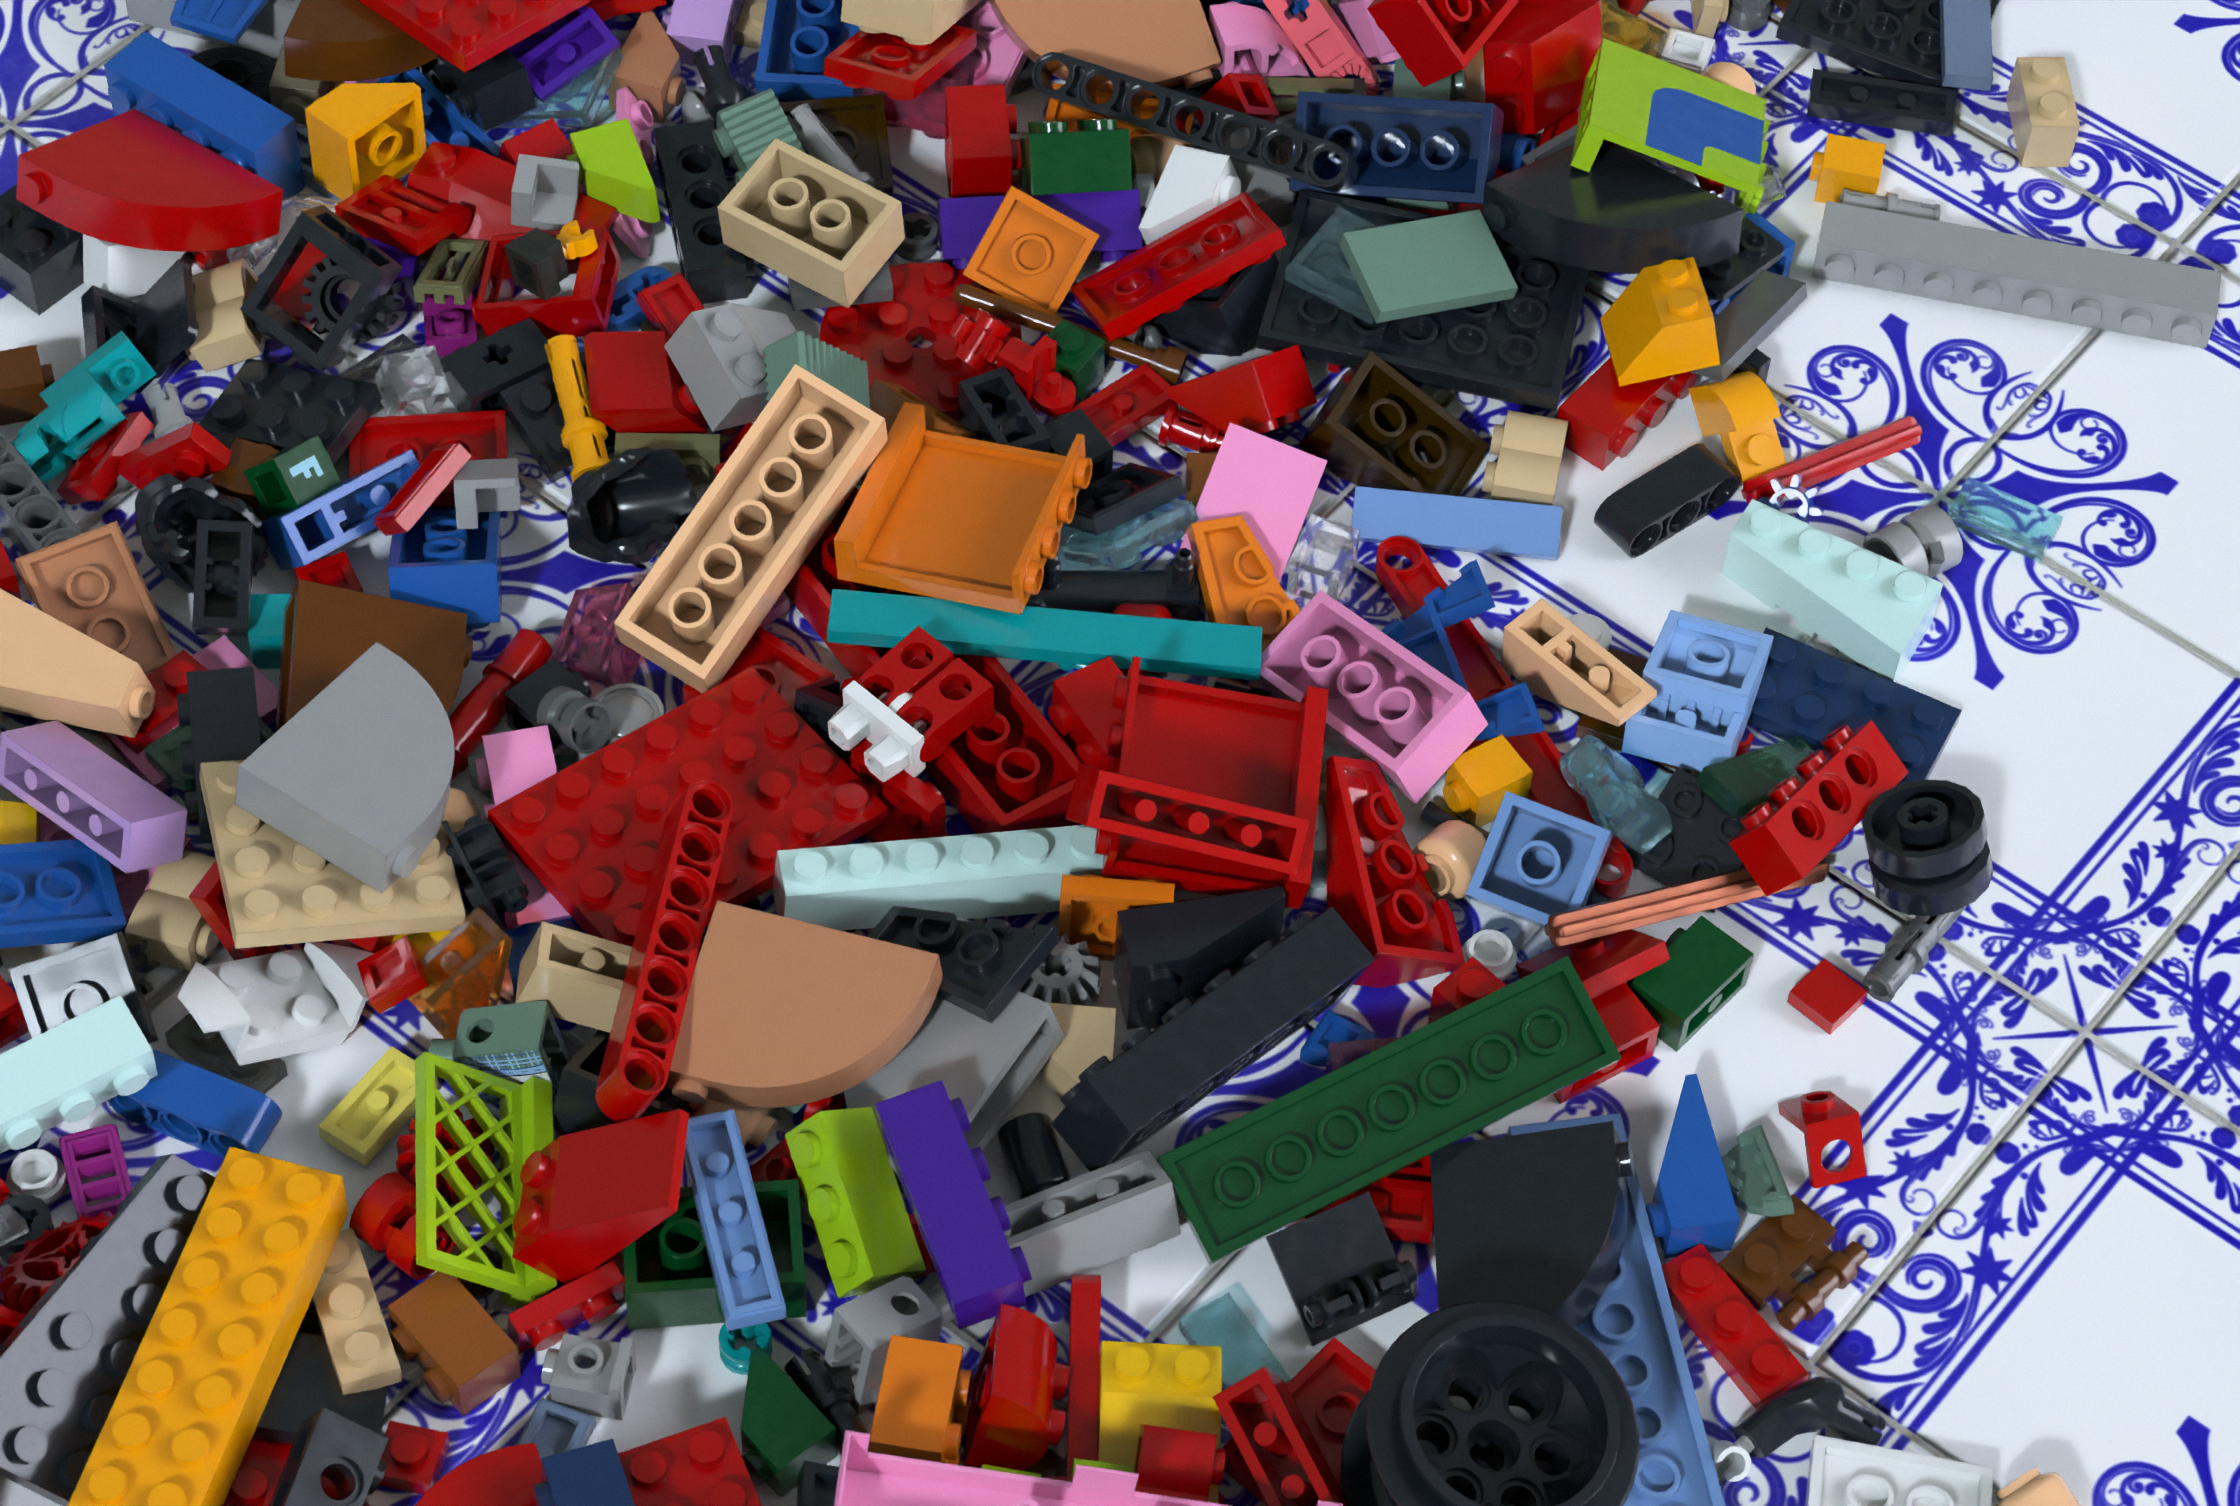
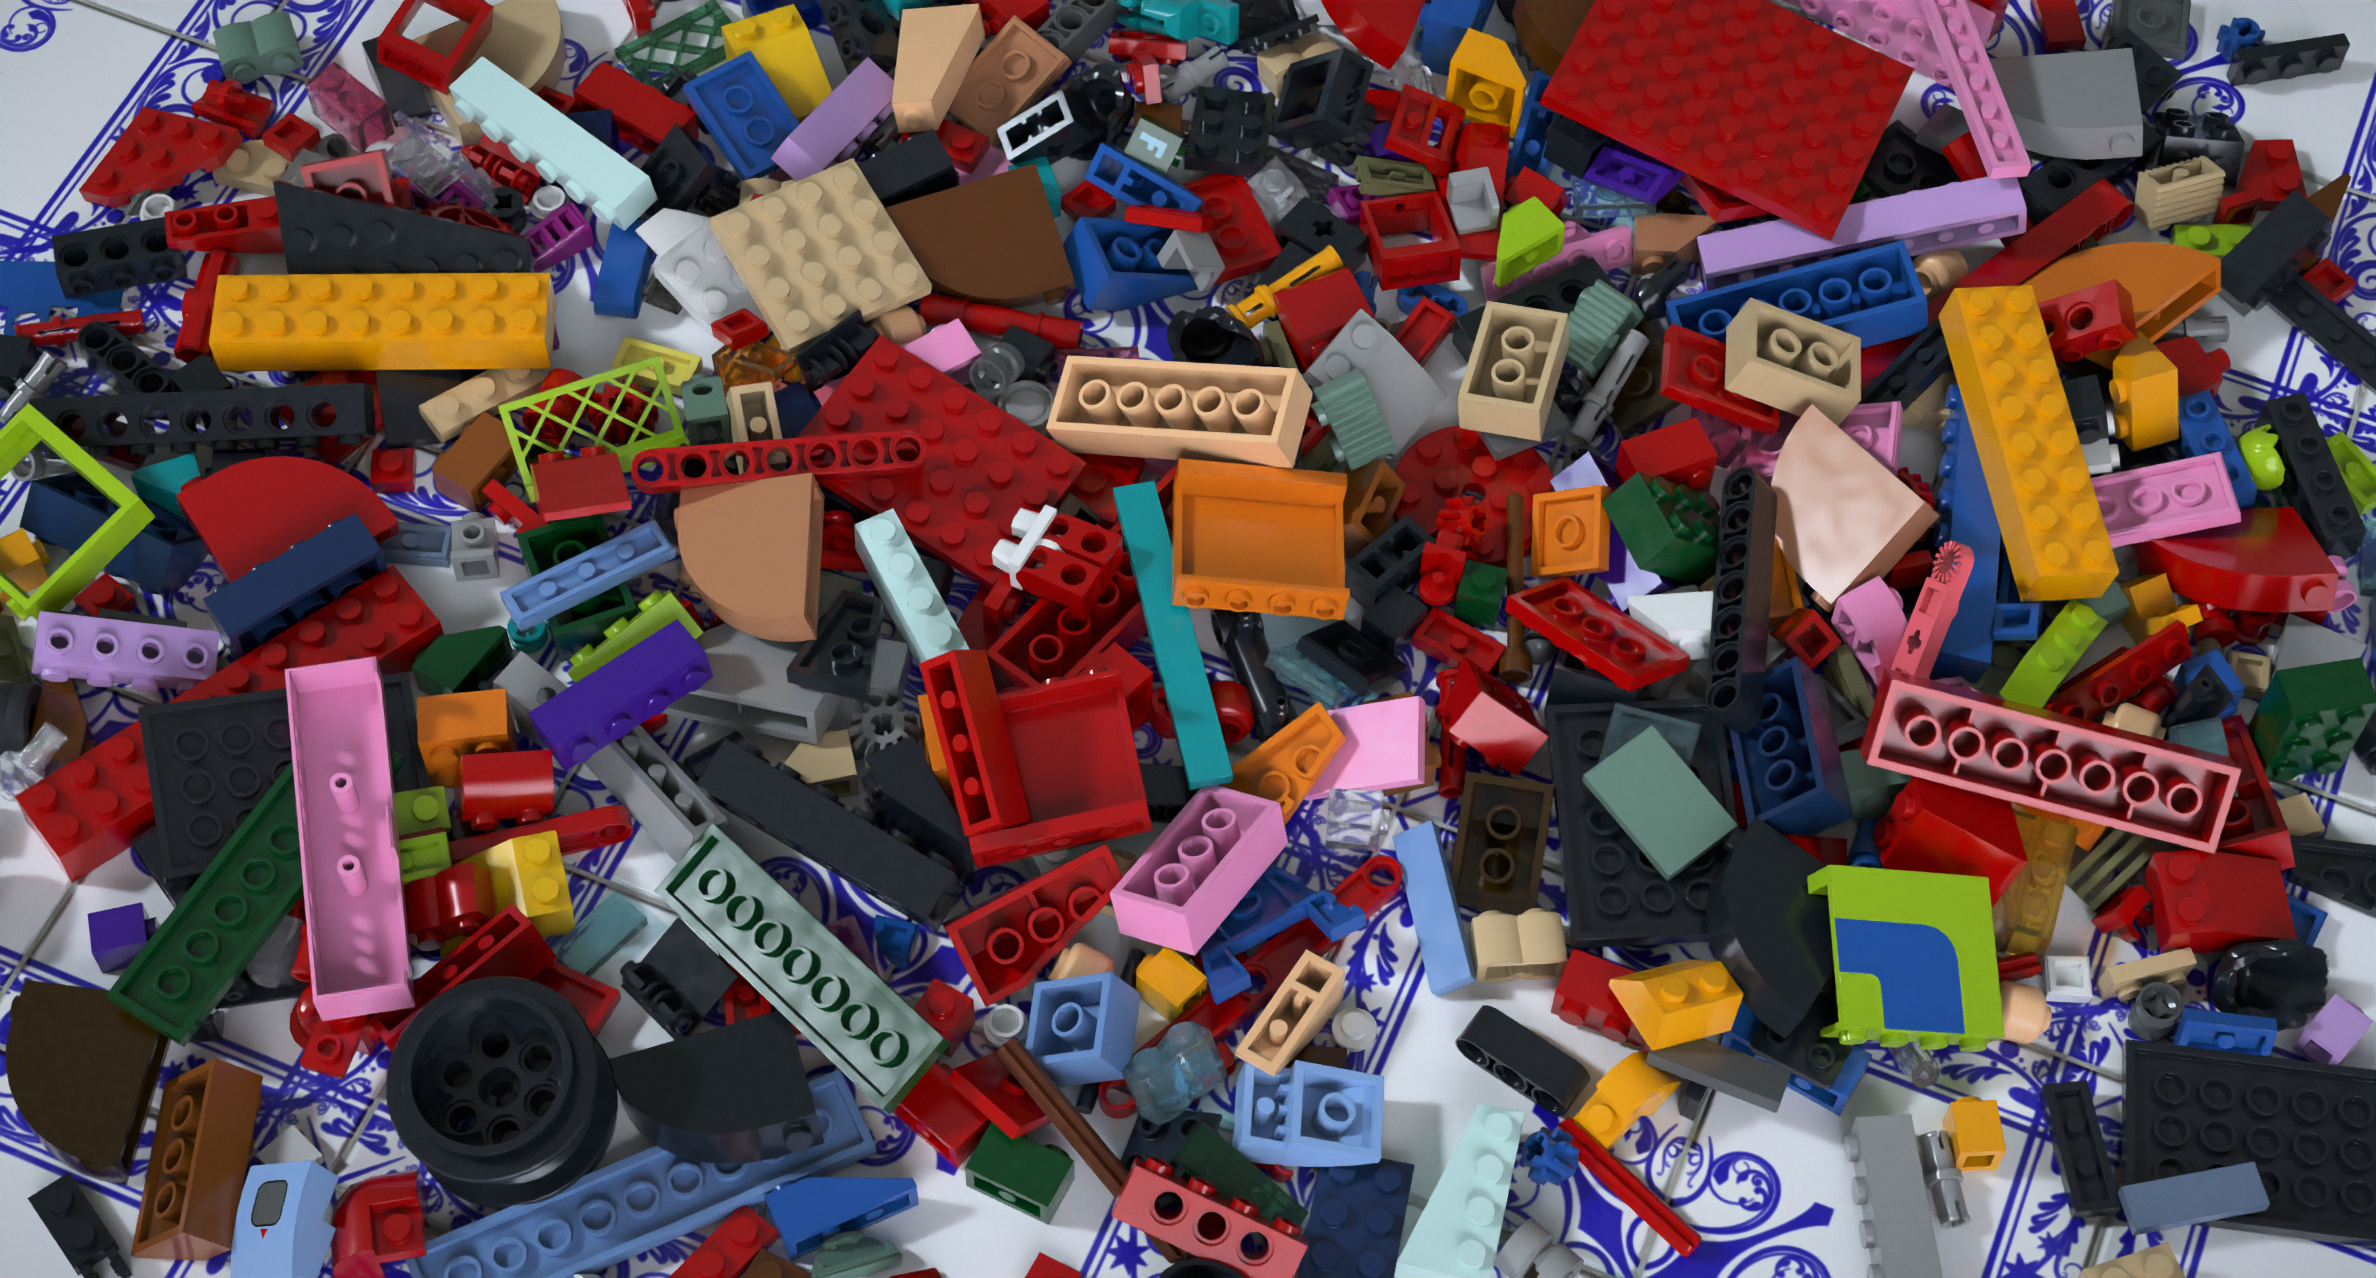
camera: 75 degrees right, 5 degrees up
(358, 770) = (872, 244): light grey brick -> none
(539, 258) = (1402, 218): pearl dark grey piece -> none

